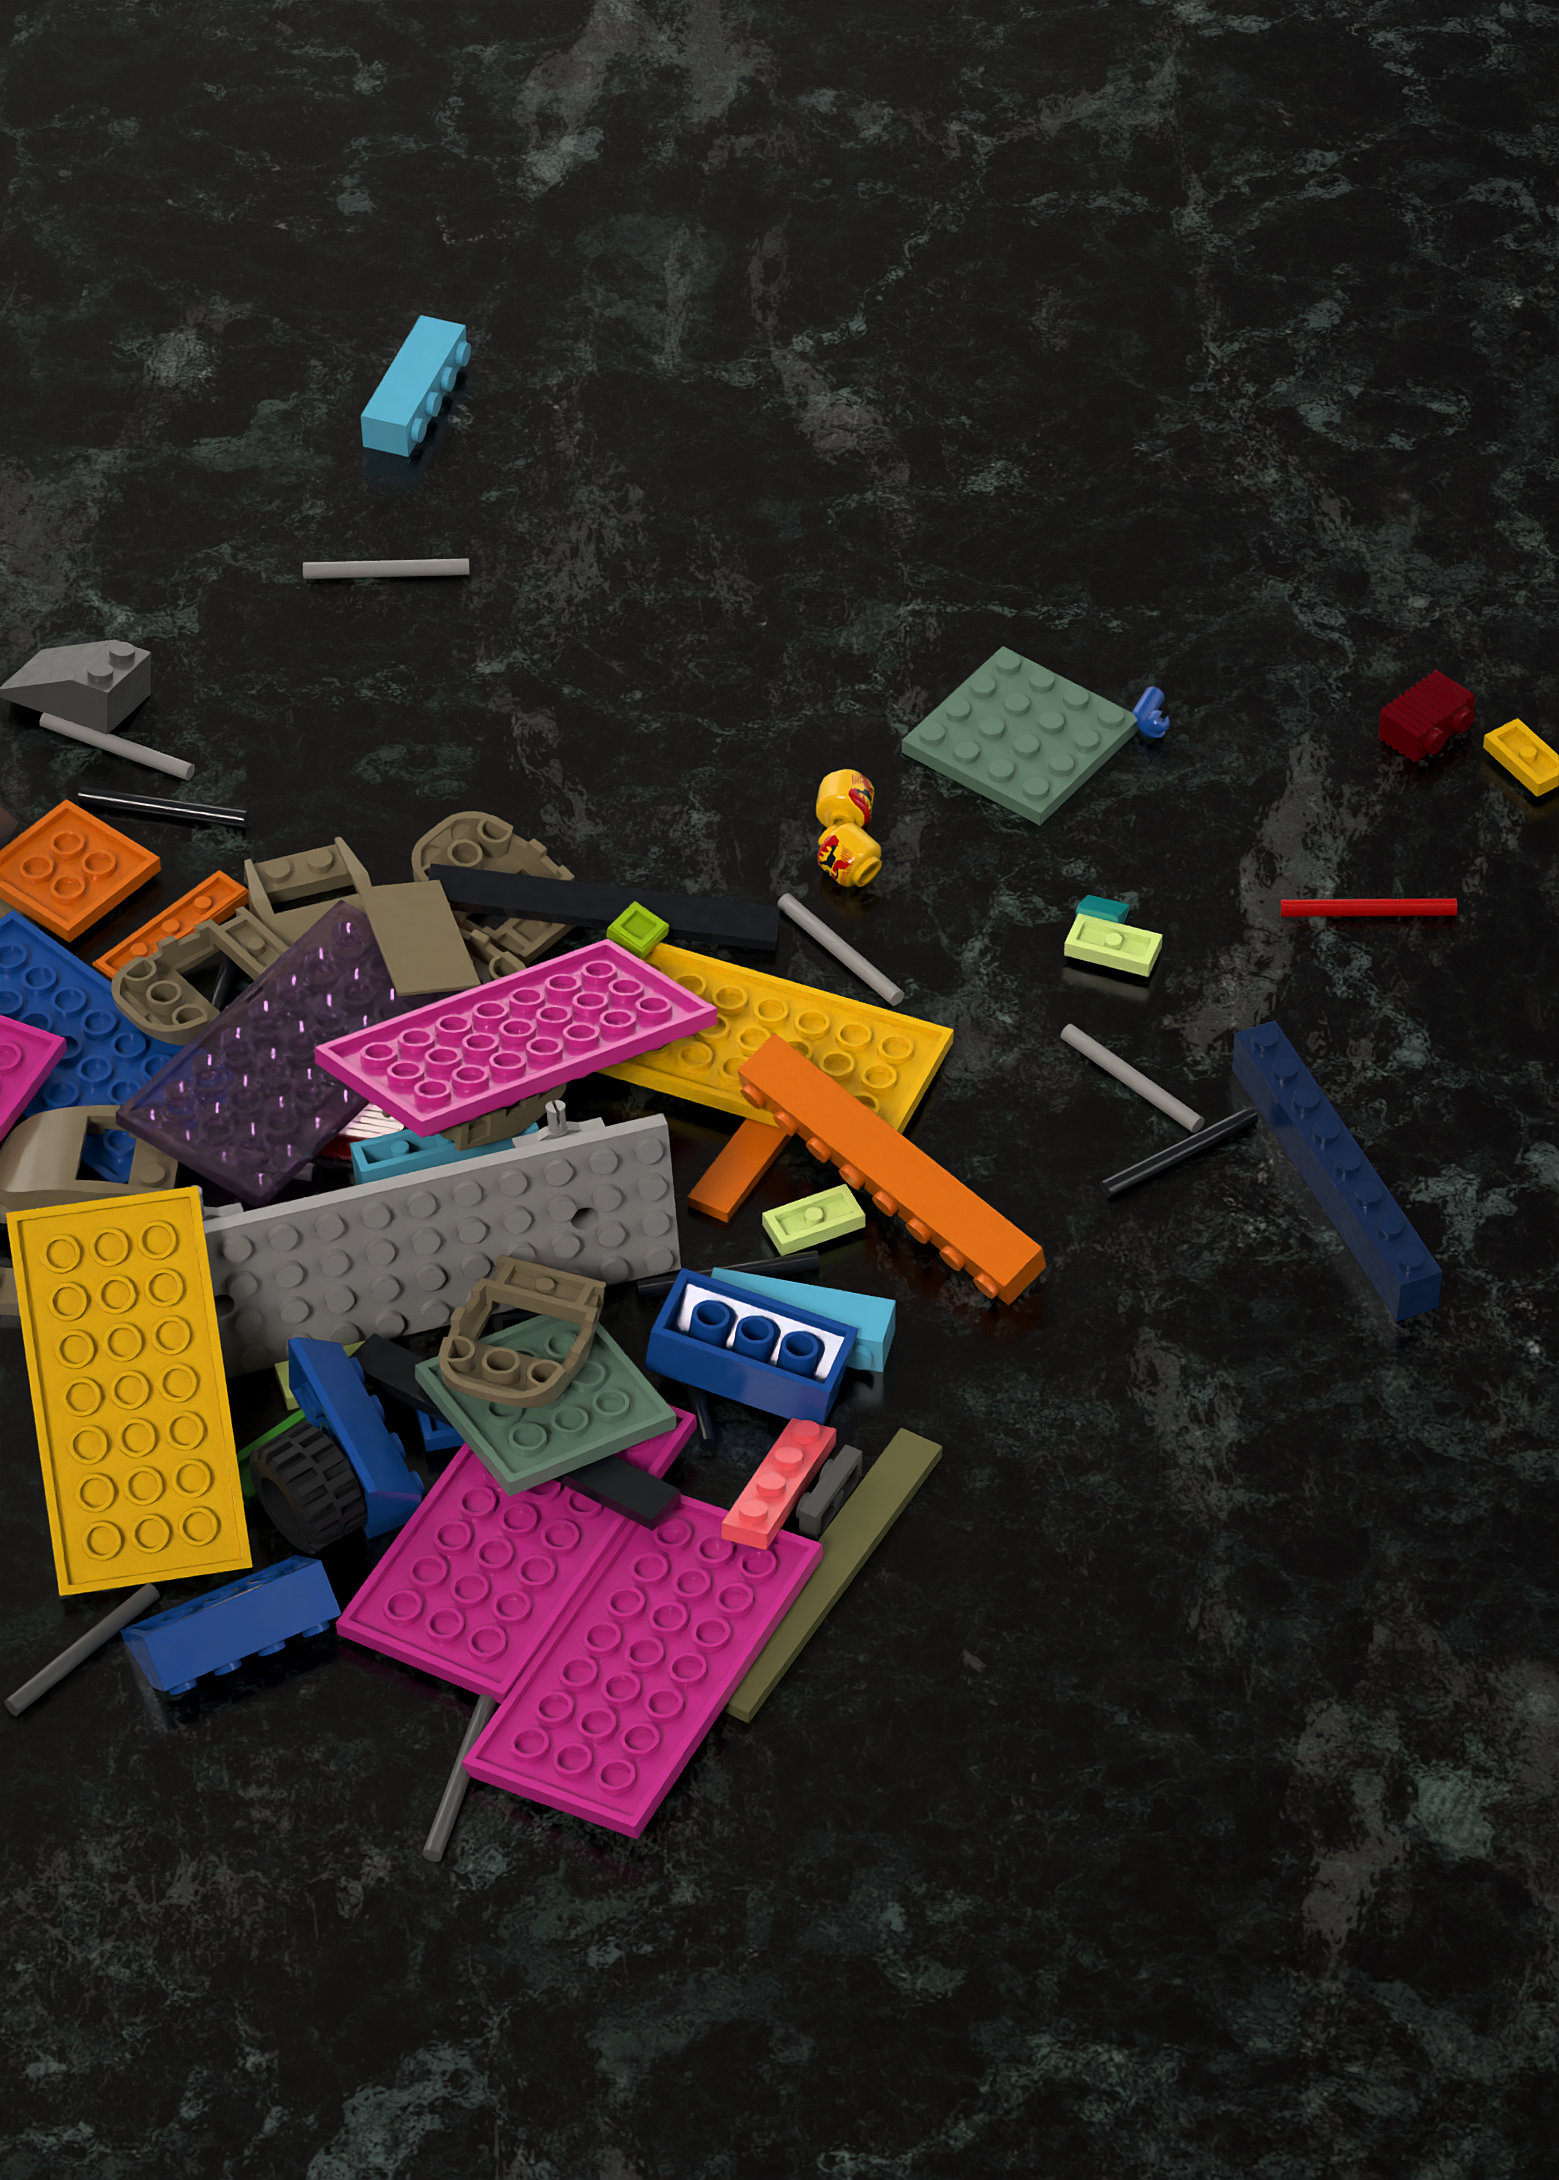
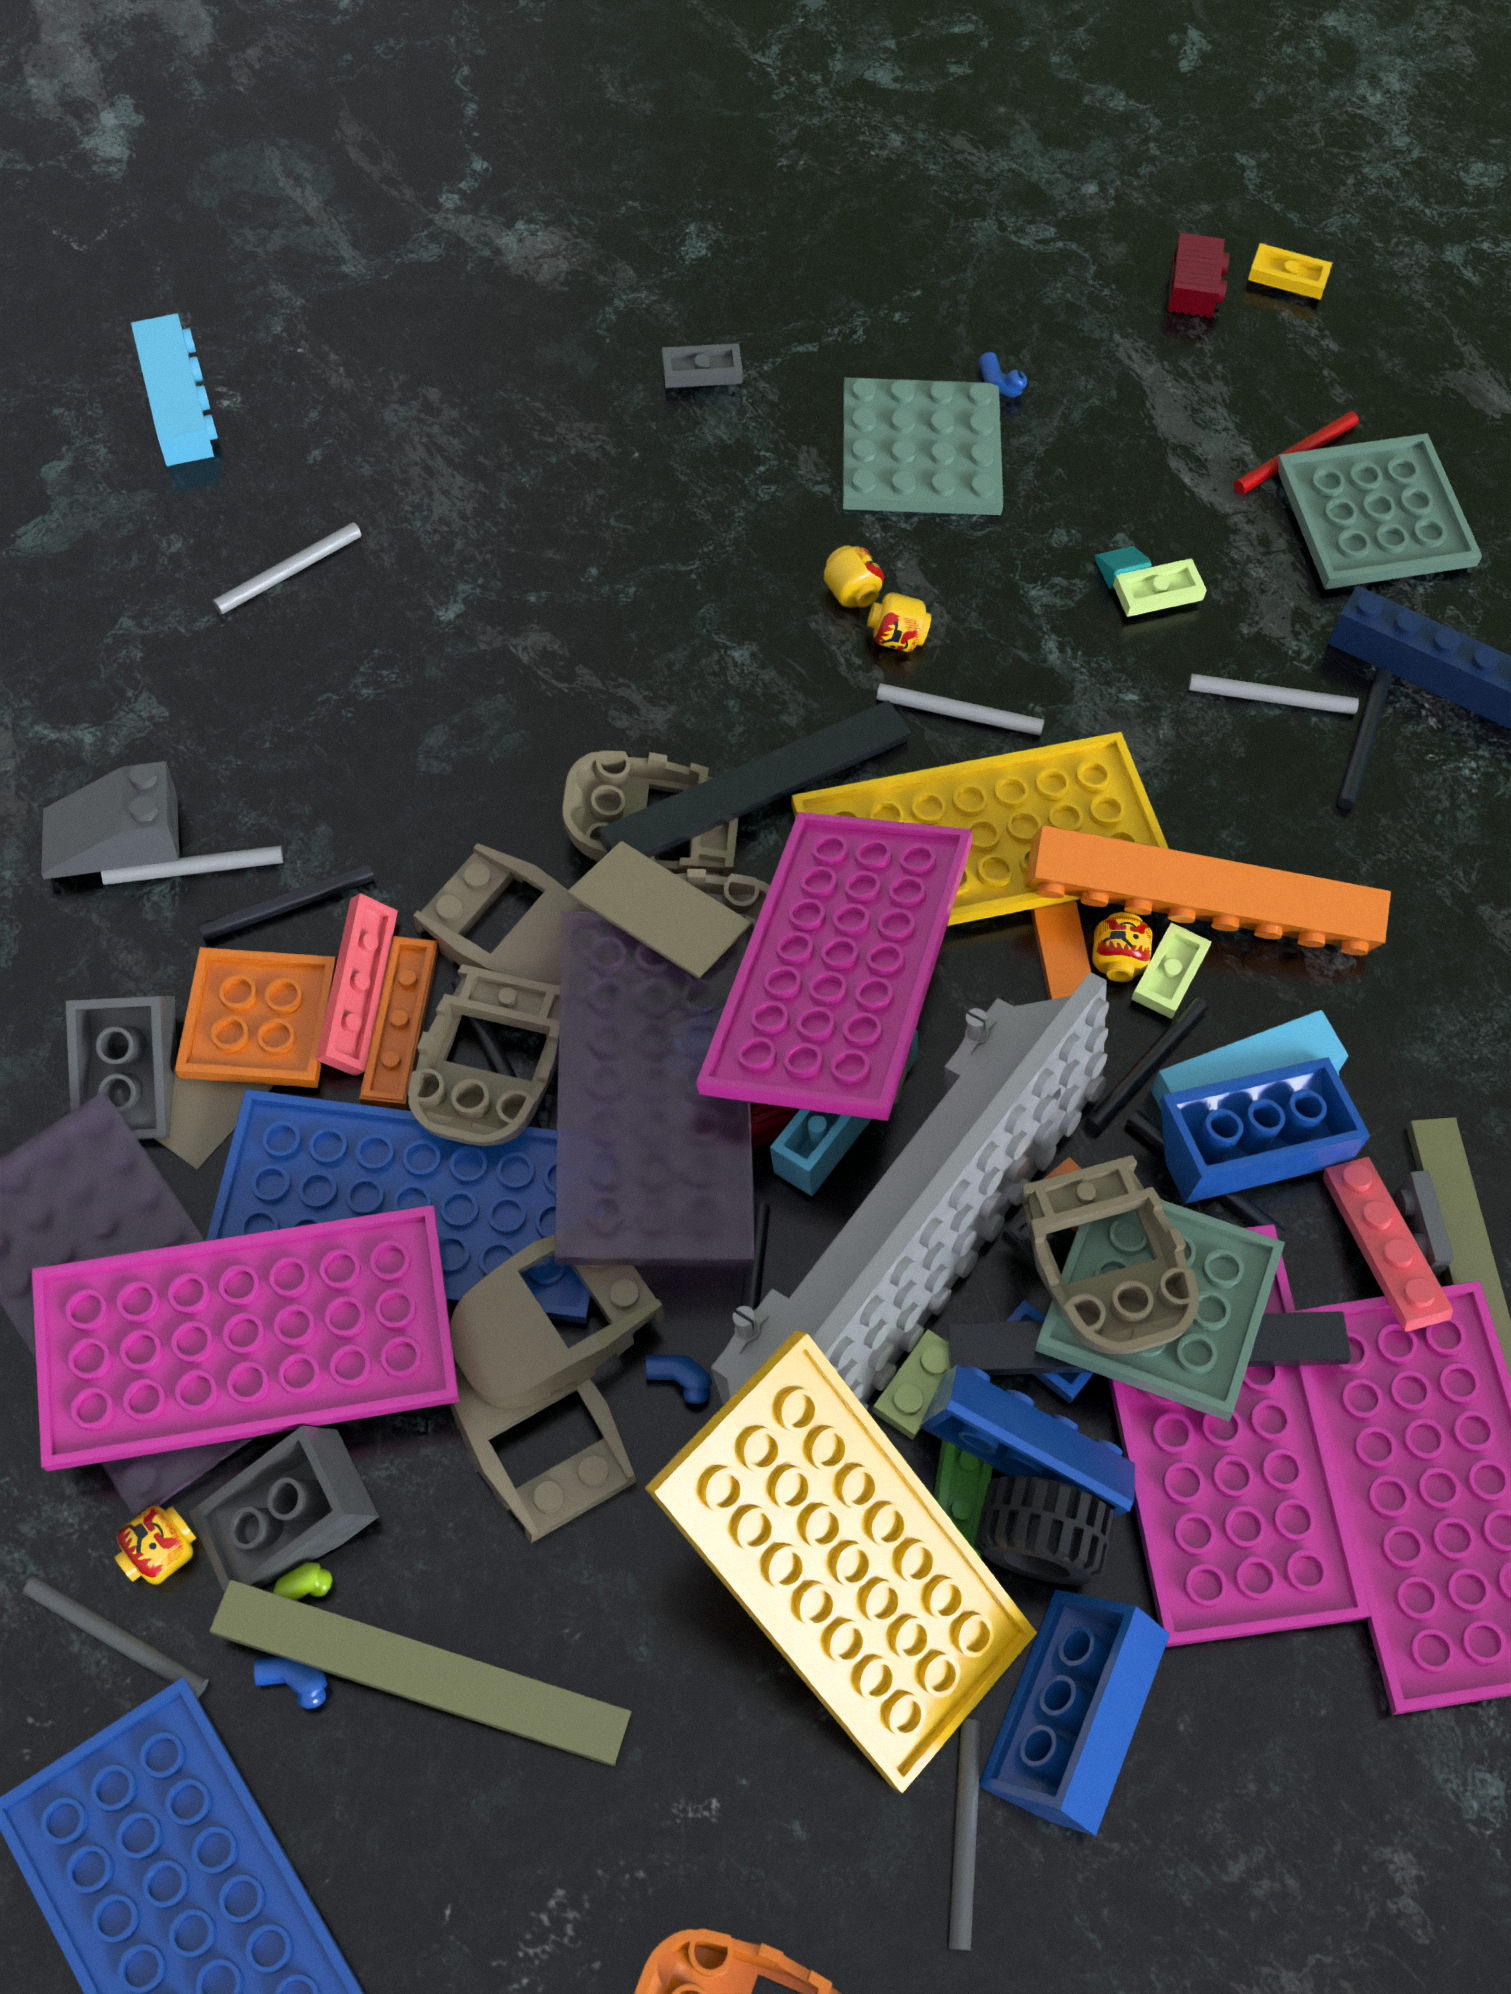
camera: 40 degrees left, 15 degrees up
(159, 885) = (357, 985): none -> coral plate
(457, 1782) = (1394, 1723): dark grey bar -> none
(637, 930) = (810, 789): lime tile -> none
(788, 1178) = (1122, 946): none -> yellow head
(884, 577) = (702, 365): none -> dark grey plate
(1387, 986) = (1377, 511): none -> sand green plate

